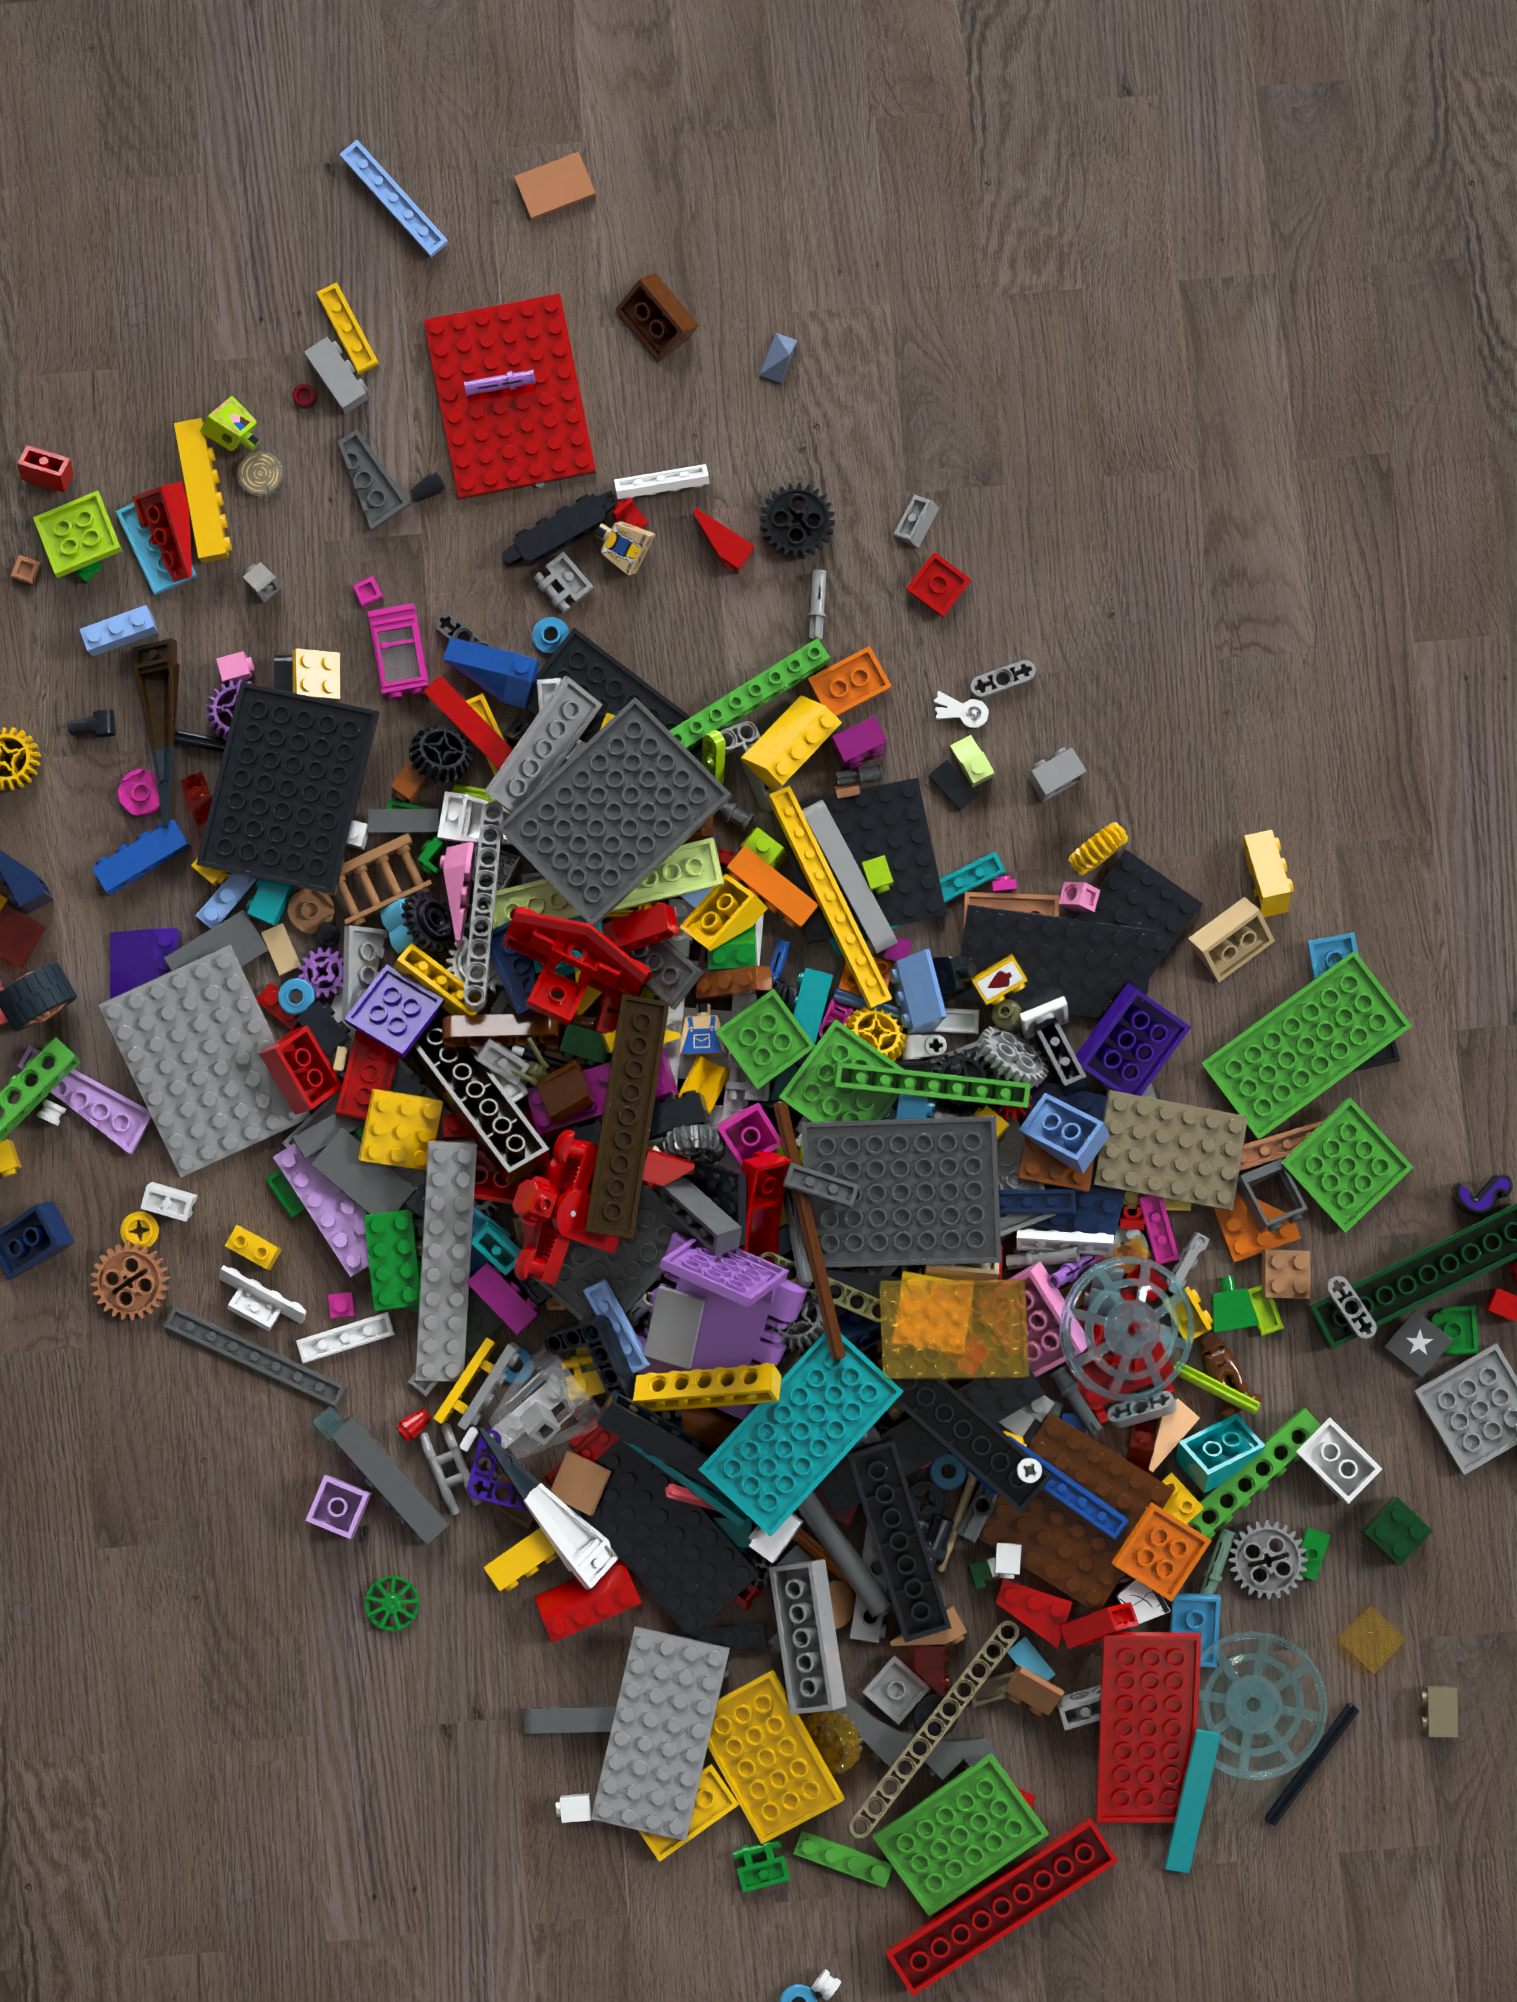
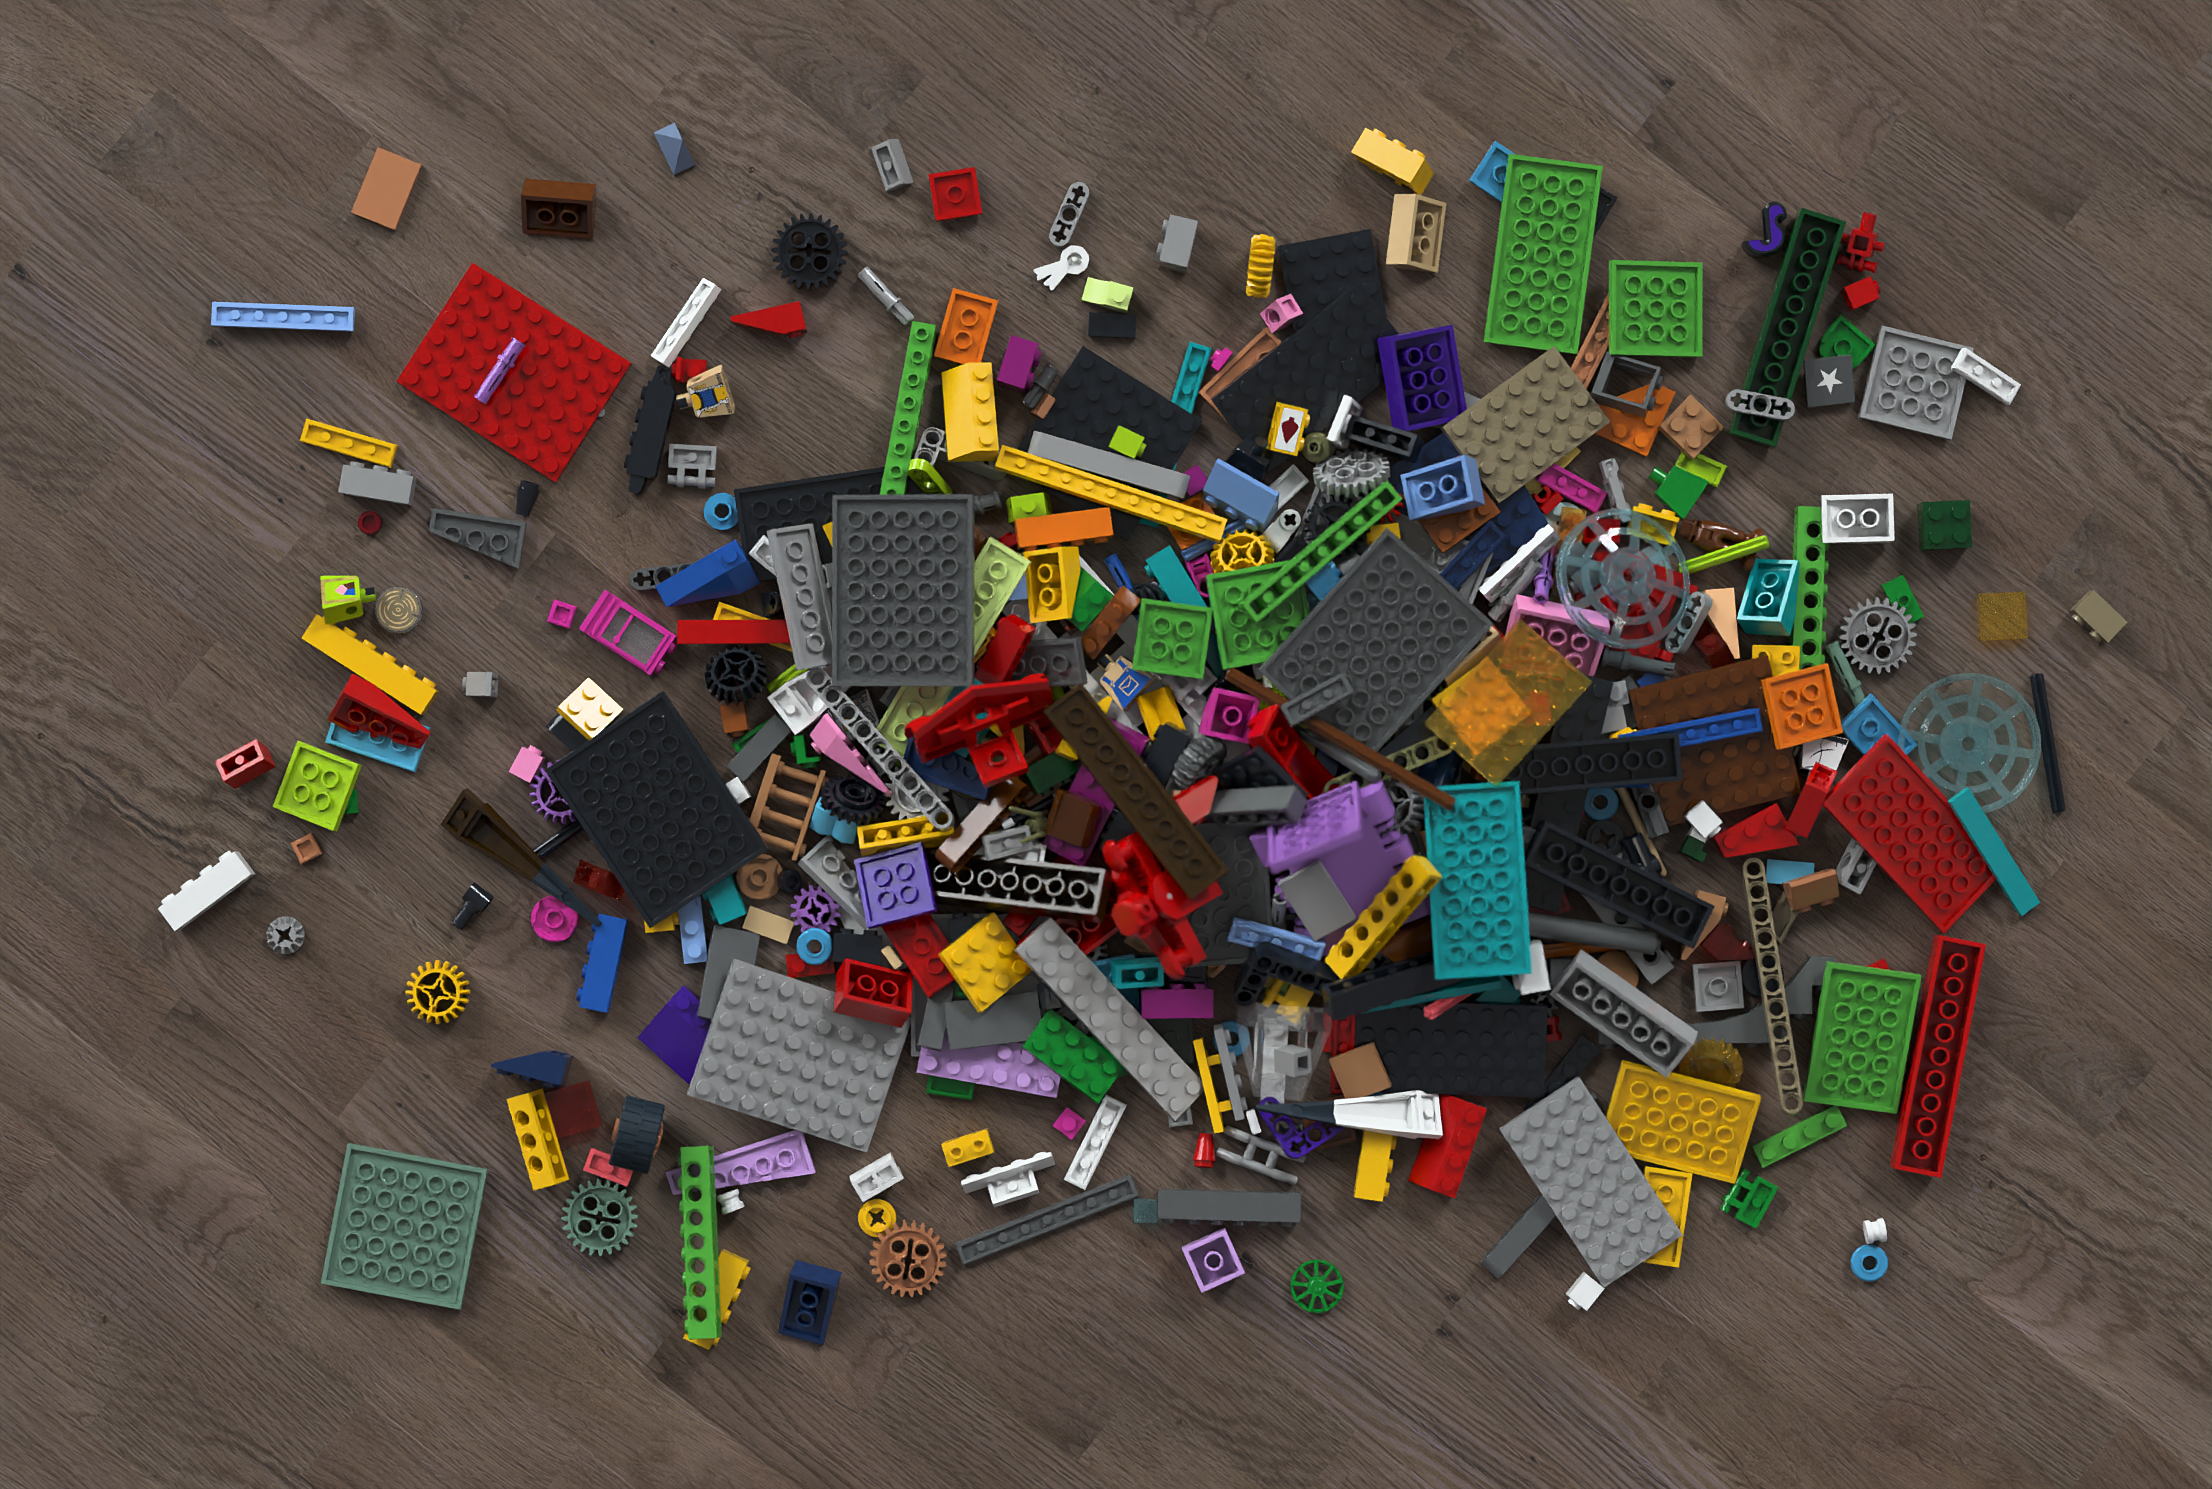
camera: 45 degrees left, 5 degrees up
(119, 630) = (418, 823): light blue brick -> none
(1025, 1469) = (1656, 743): white wheel -> none

